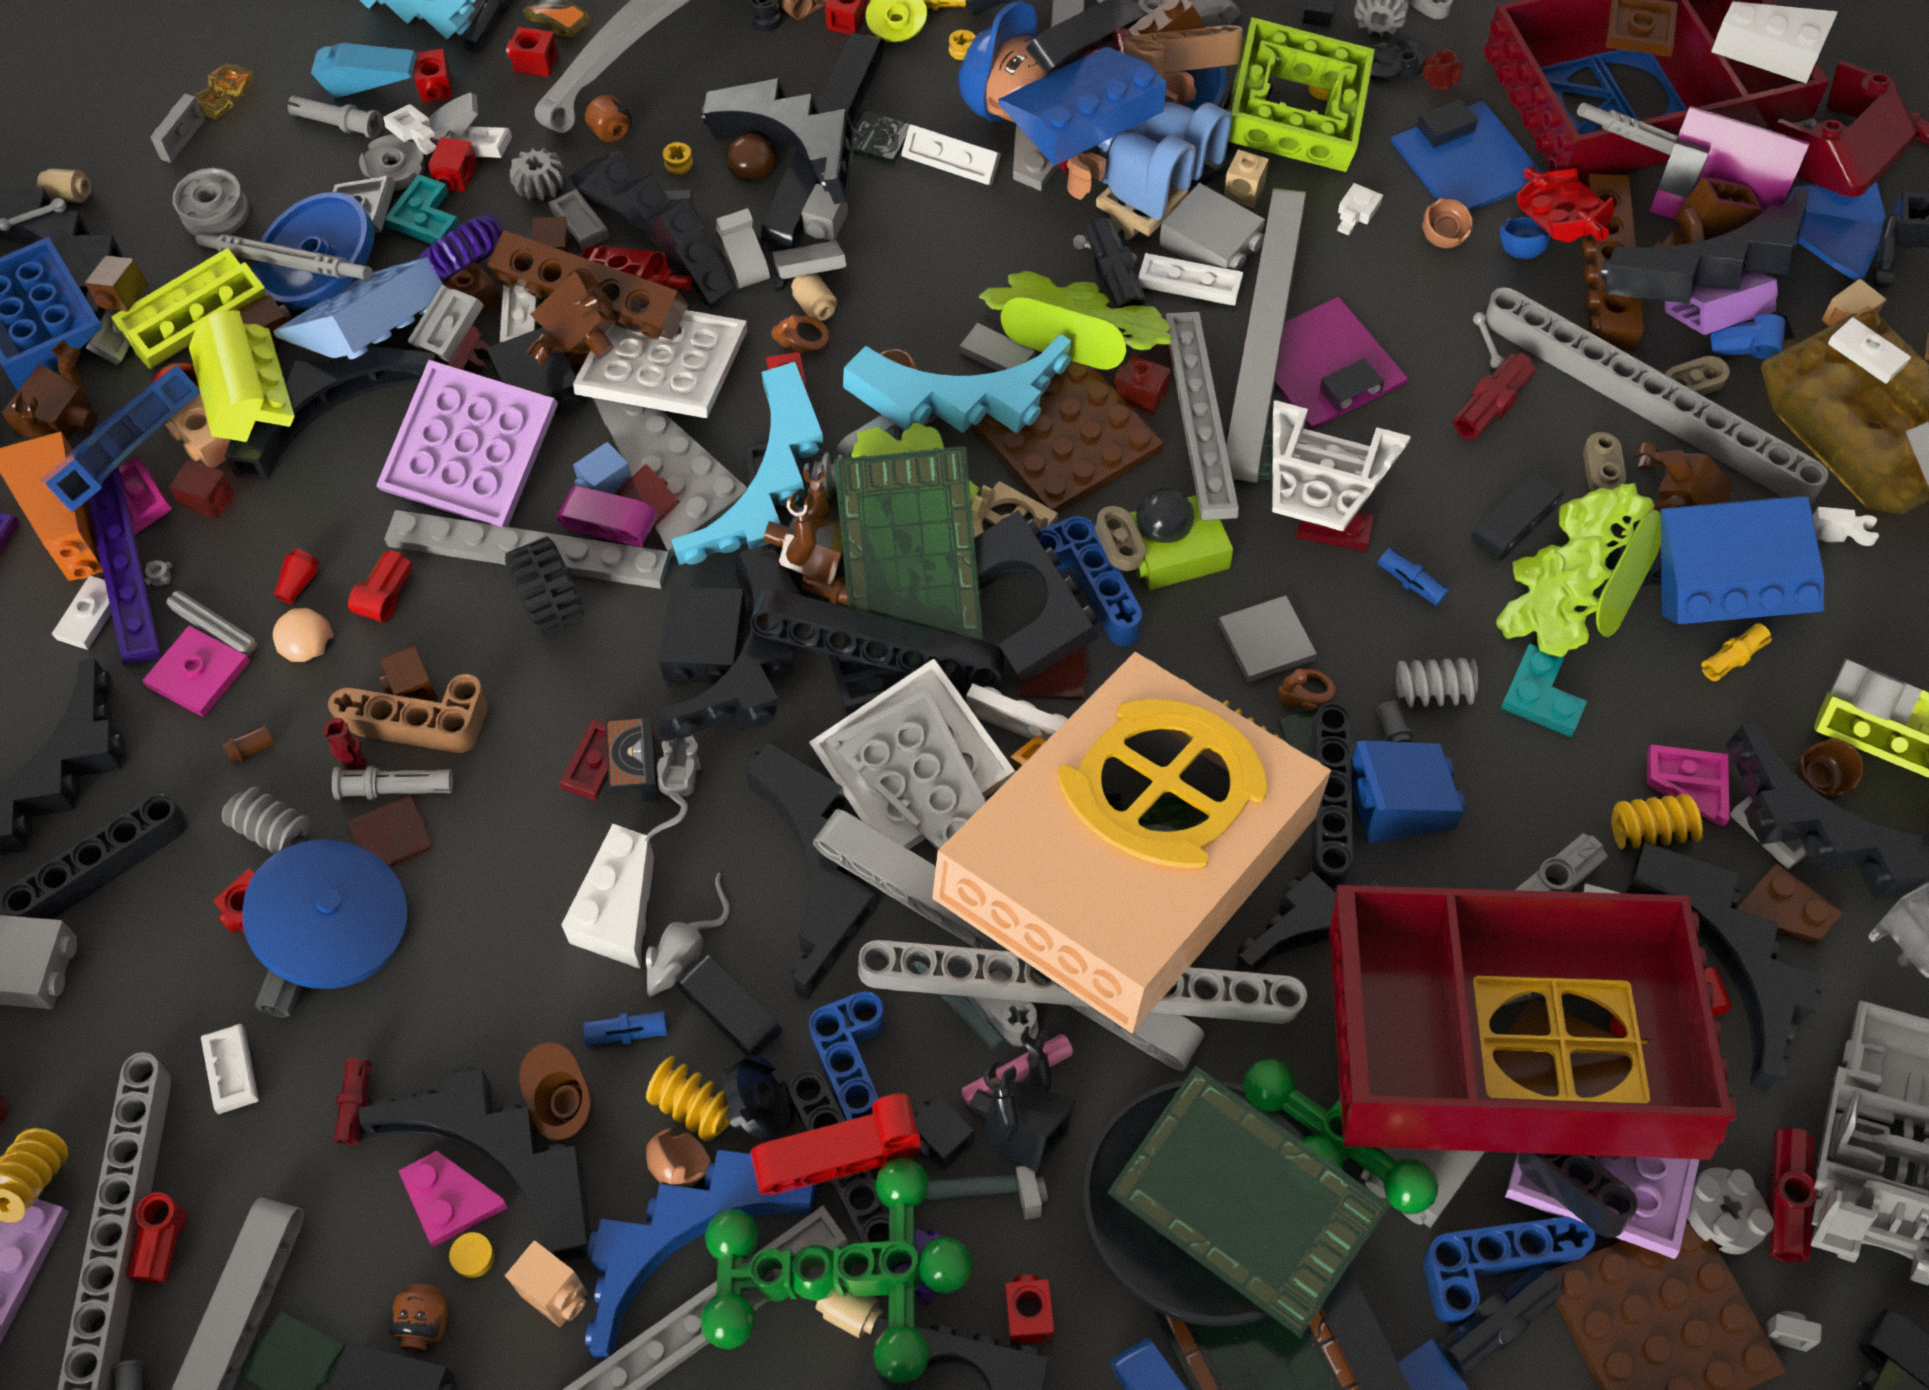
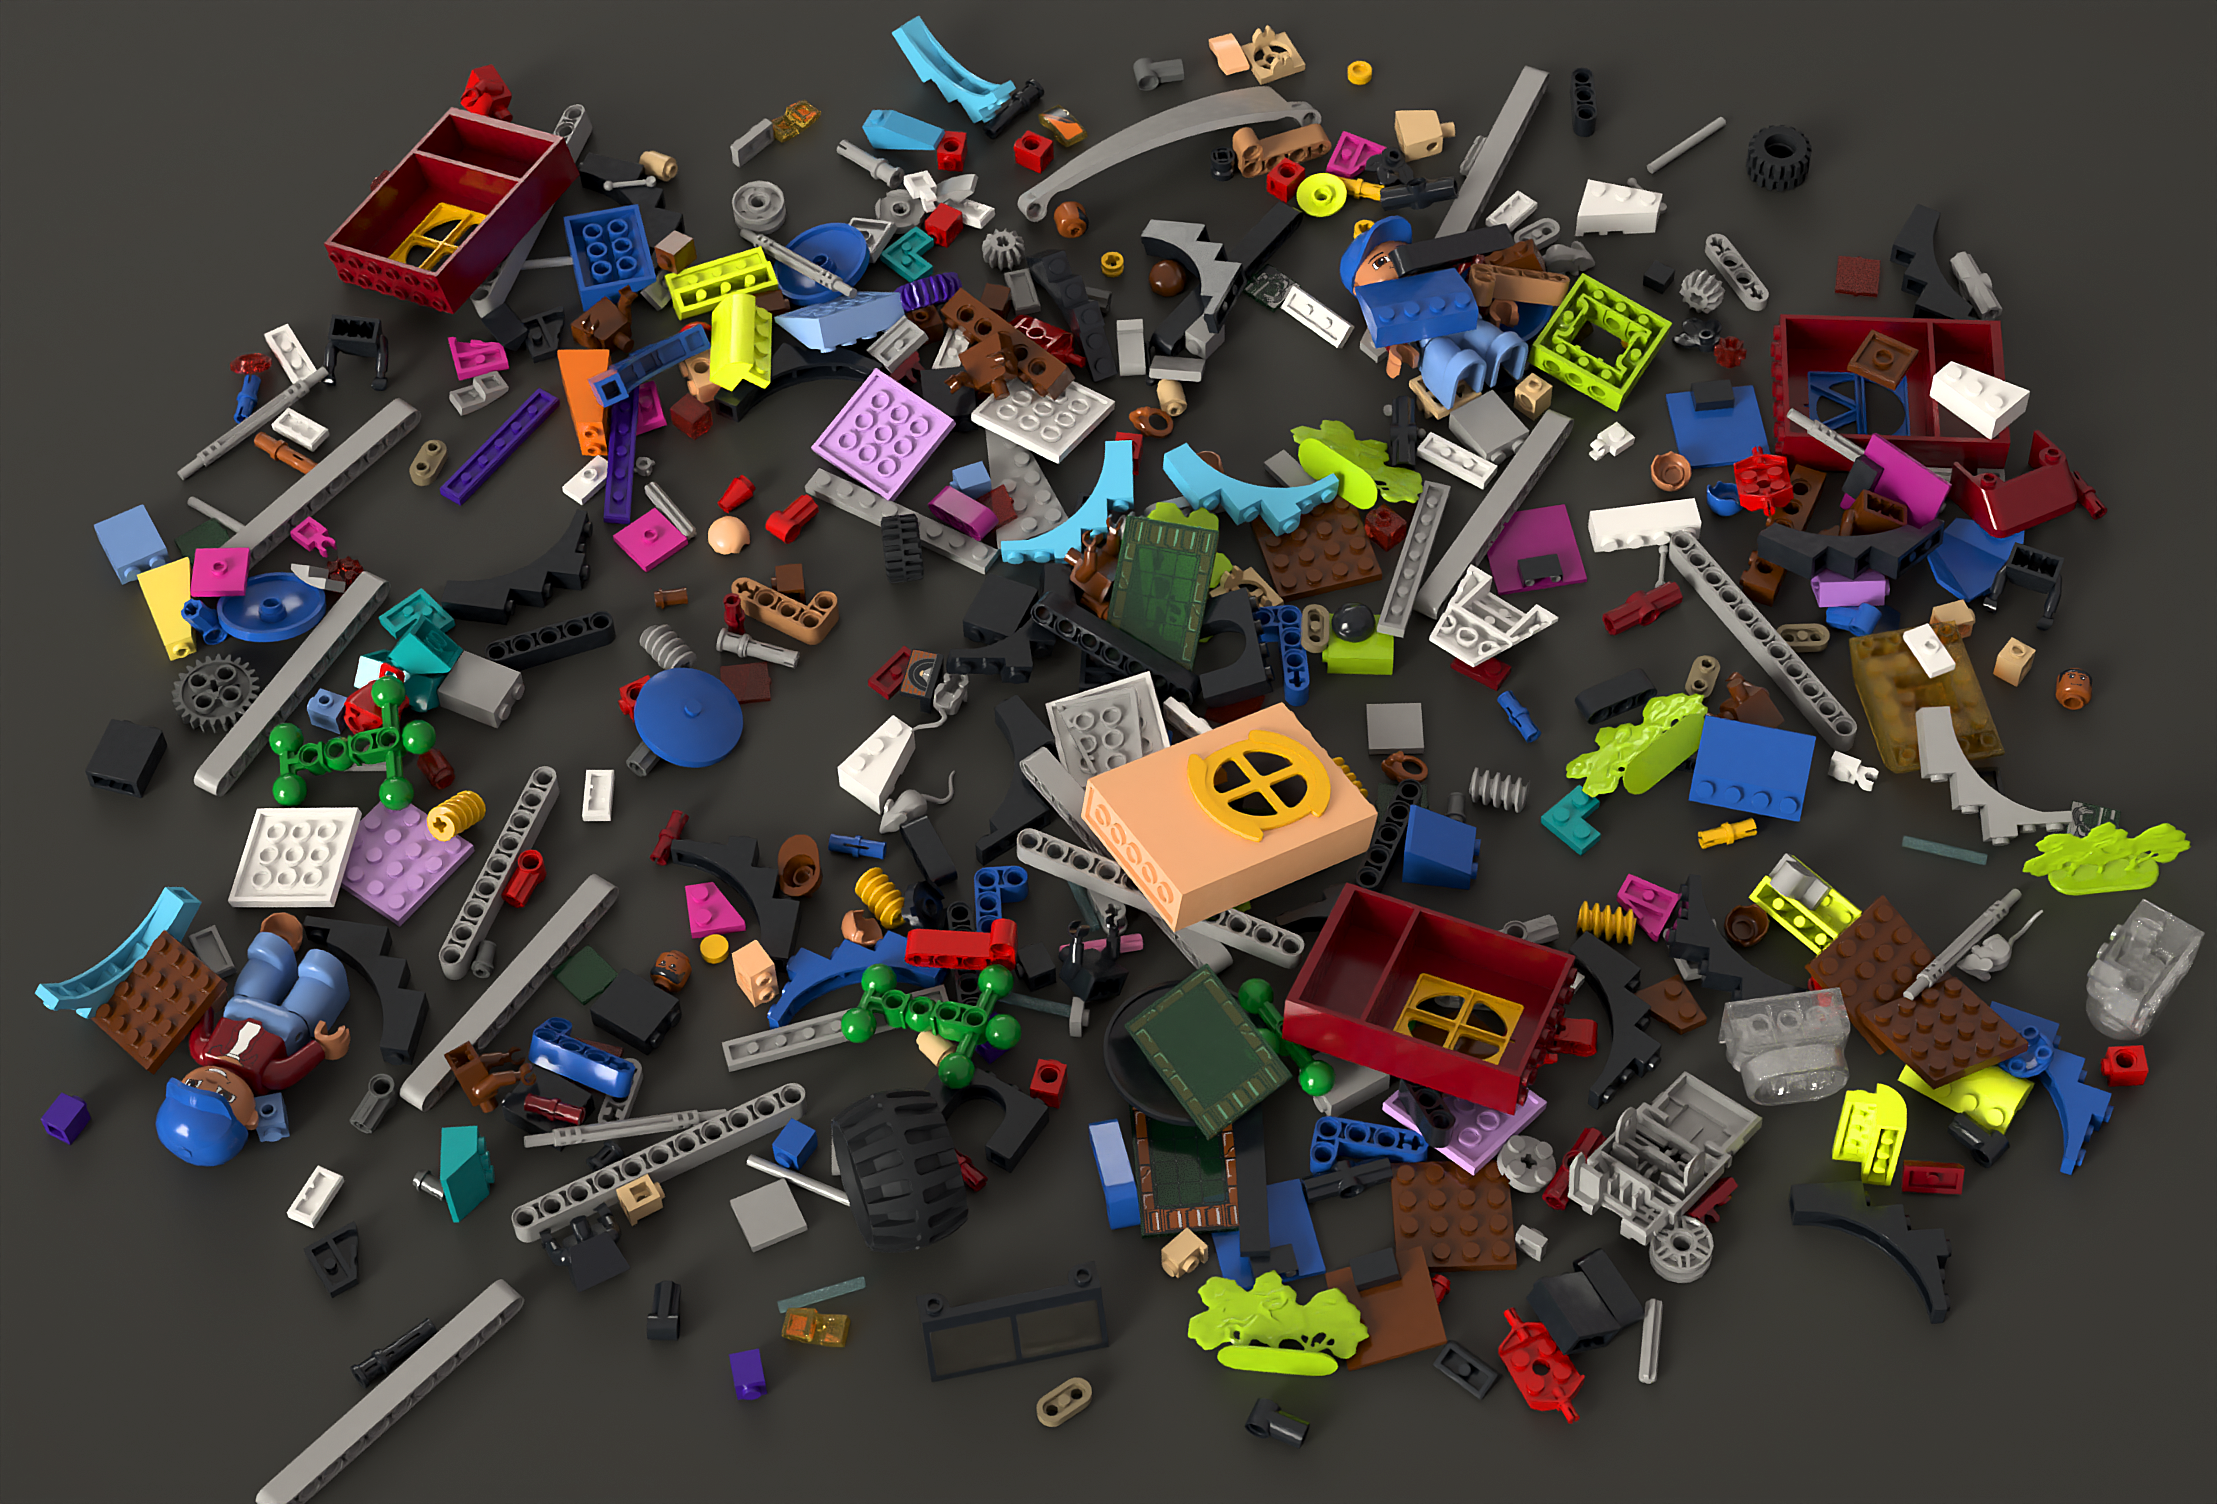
camera: 20 degrees right, 5 degrees down
(1445, 295) = (1642, 524): none -> white brick

